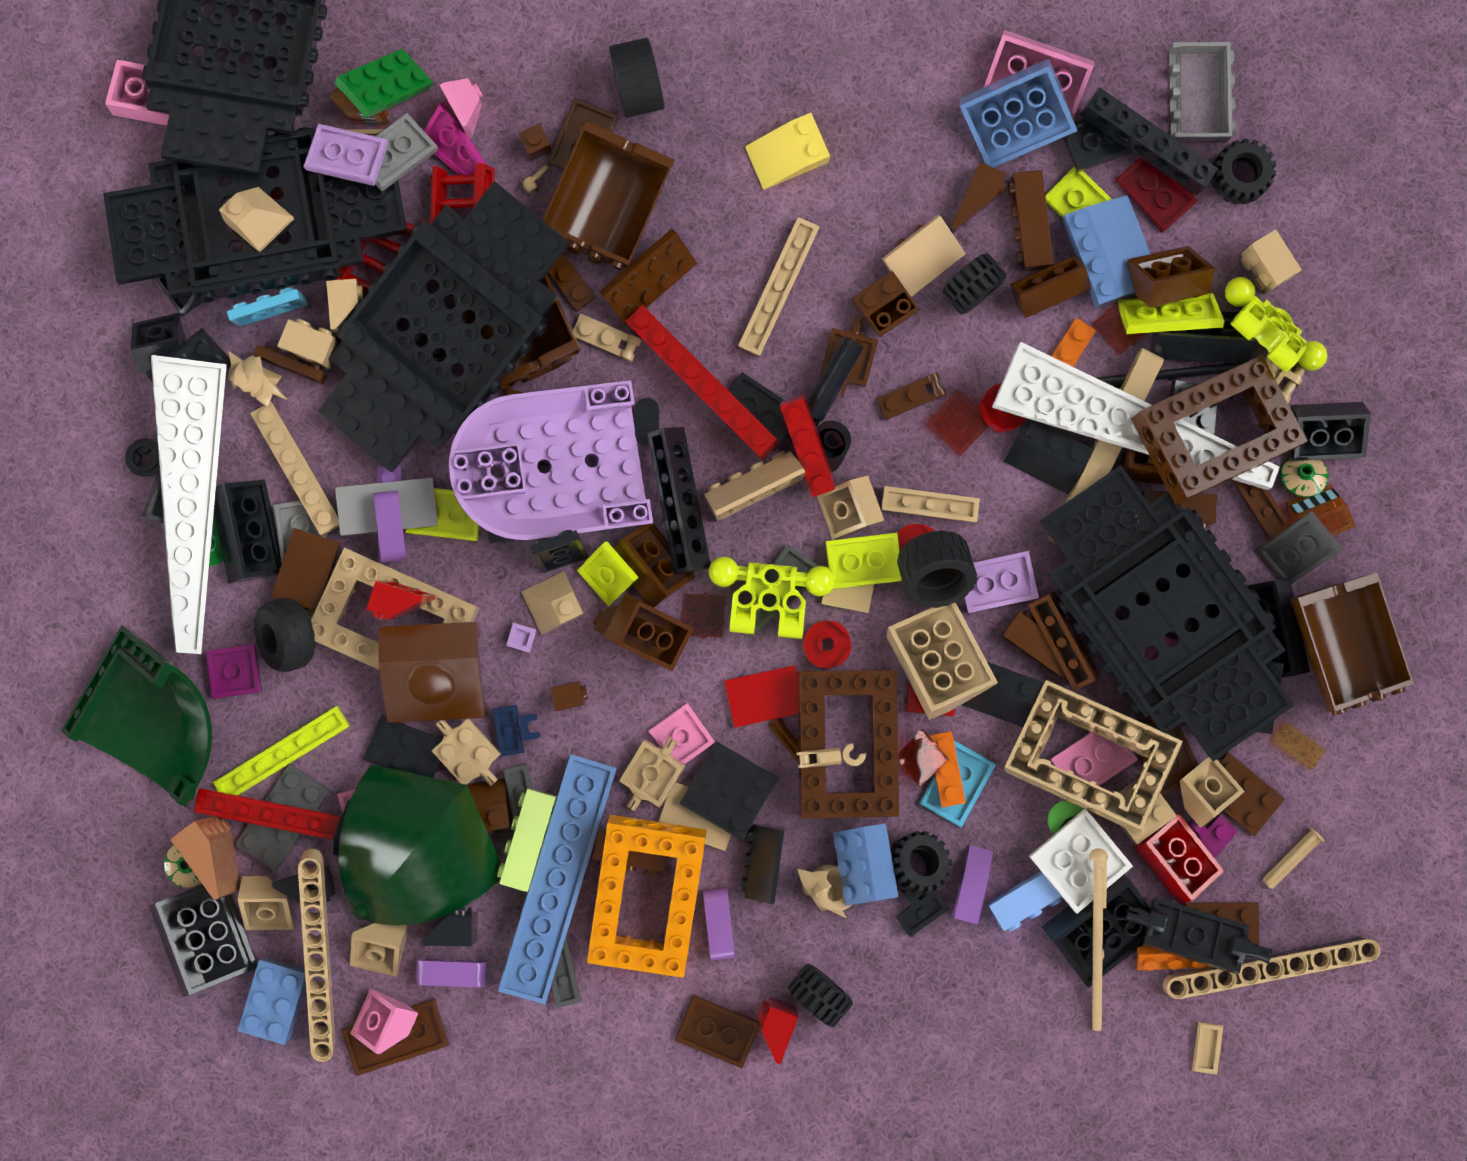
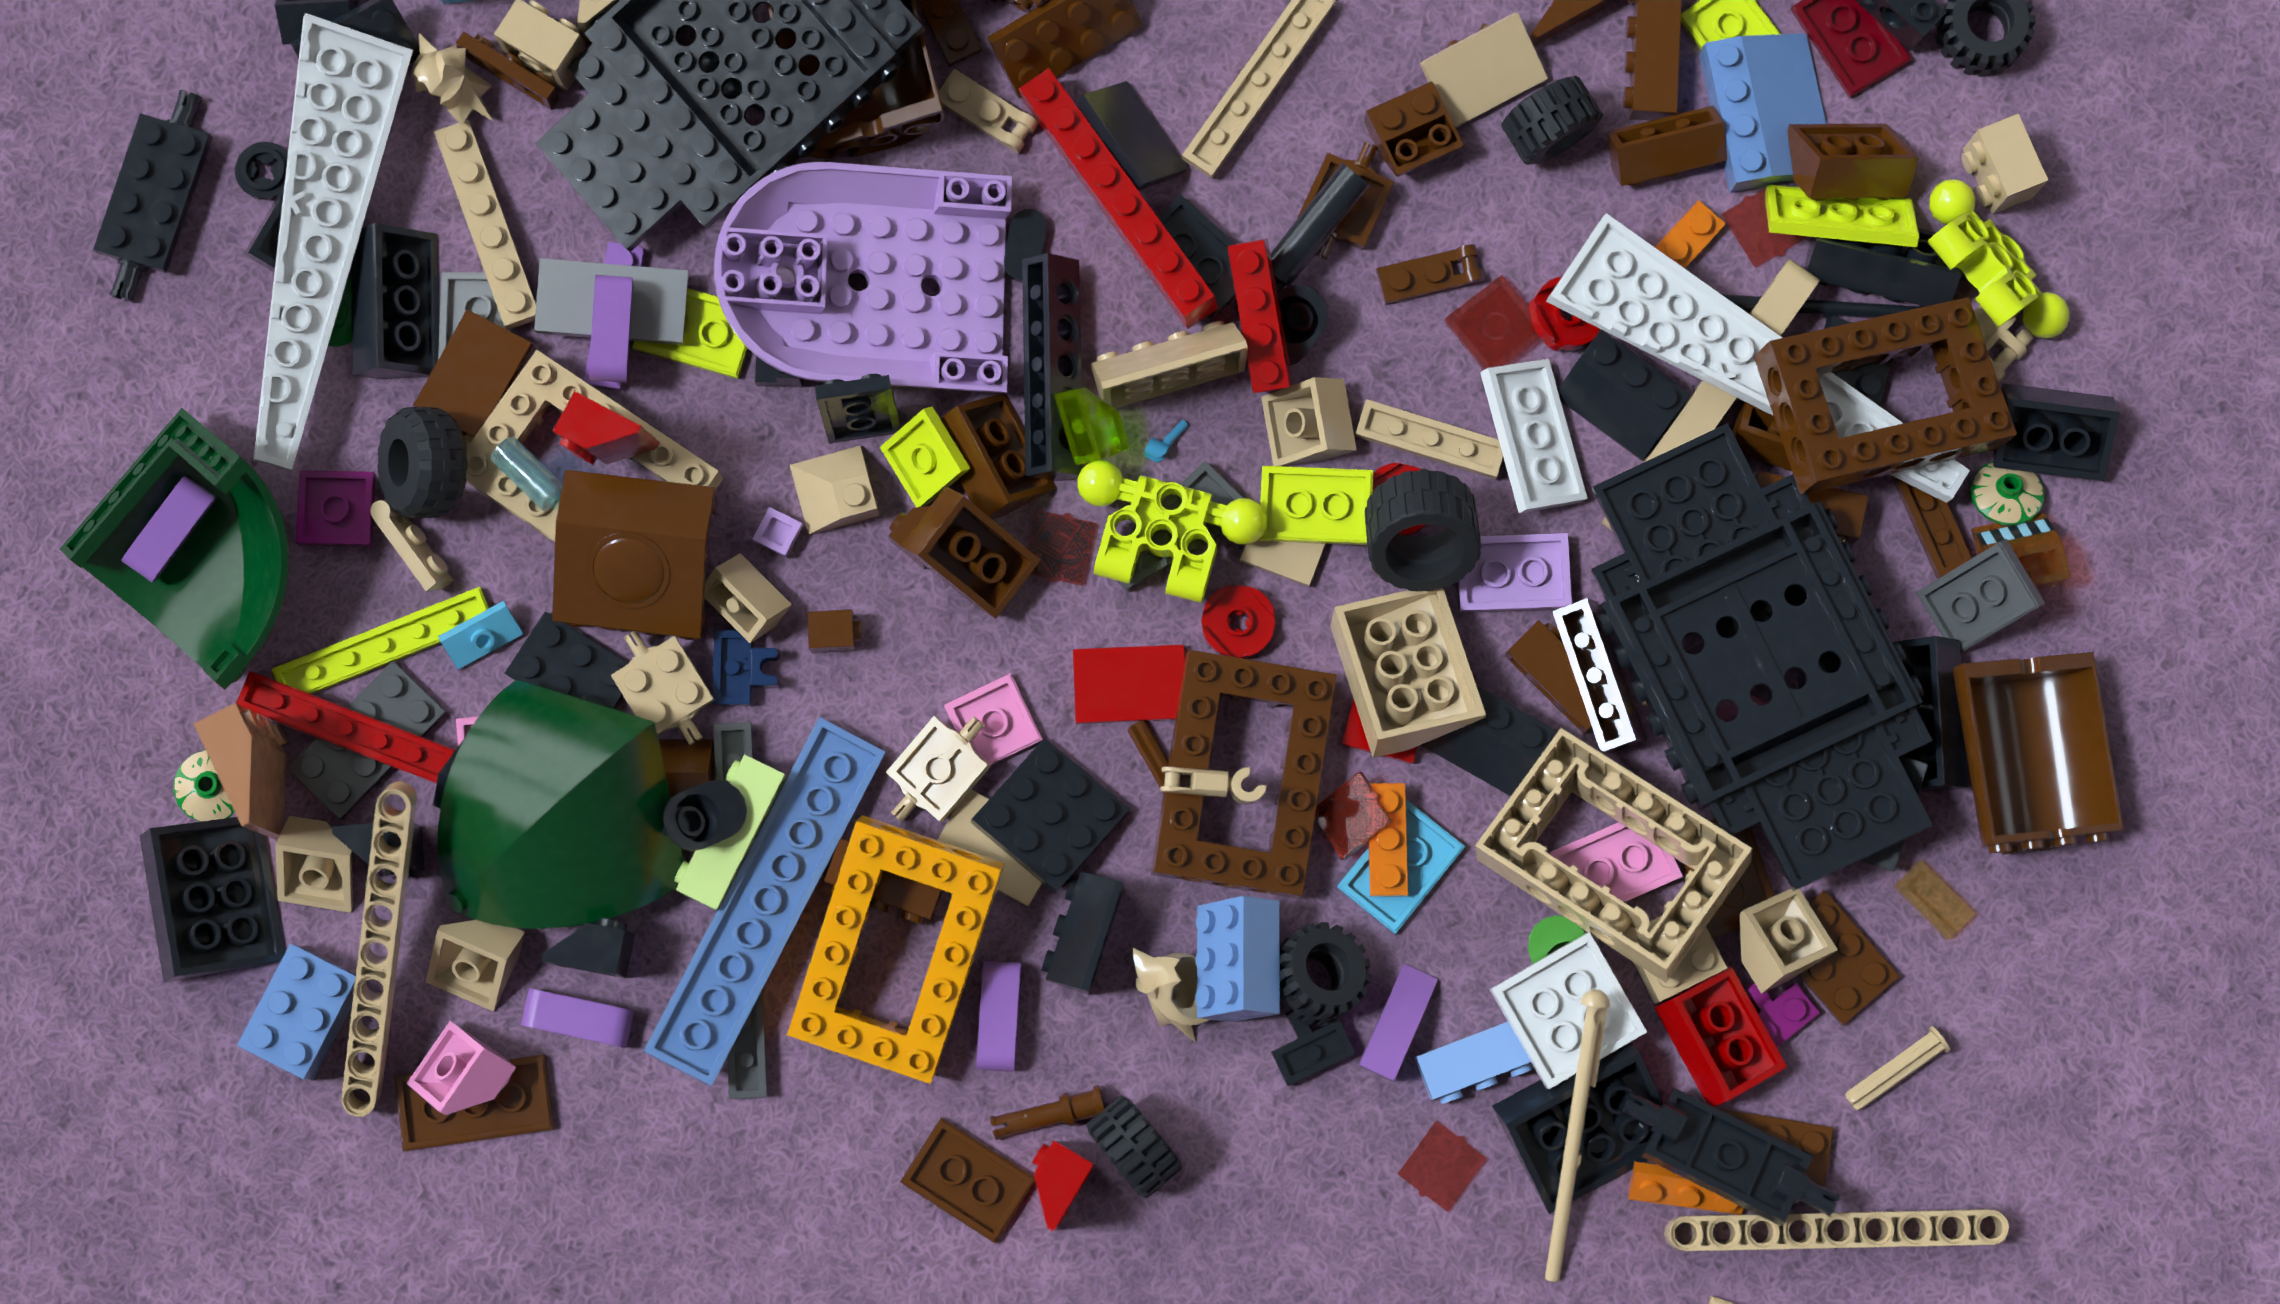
camera: 10 degrees right, 5 degrees down
(75, 486) = (153, 194): none -> black plate
(128, 705) = (169, 528): none -> medium lavender beam
(288, 689) = (411, 546): none -> tan plate
(343, 737) = (480, 635): none -> medium azure plate
(354, 631) = (527, 473): none -> clear light blue piece
(508, 685) = (745, 598): none -> tan brick
(509, 835) = (704, 815): none -> black piece
(703, 339) = (1131, 135): none -> black tile
(711, 536) = (1090, 426): none -> clear neon green slope
(756, 541) = (1157, 450): none -> dark azure hand
(772, 976) = (1068, 1110): none -> reddish brown pin
(996, 491) = (1533, 435): none -> white plate
(1015, 969) = (1441, 1166): none -> clear red piece

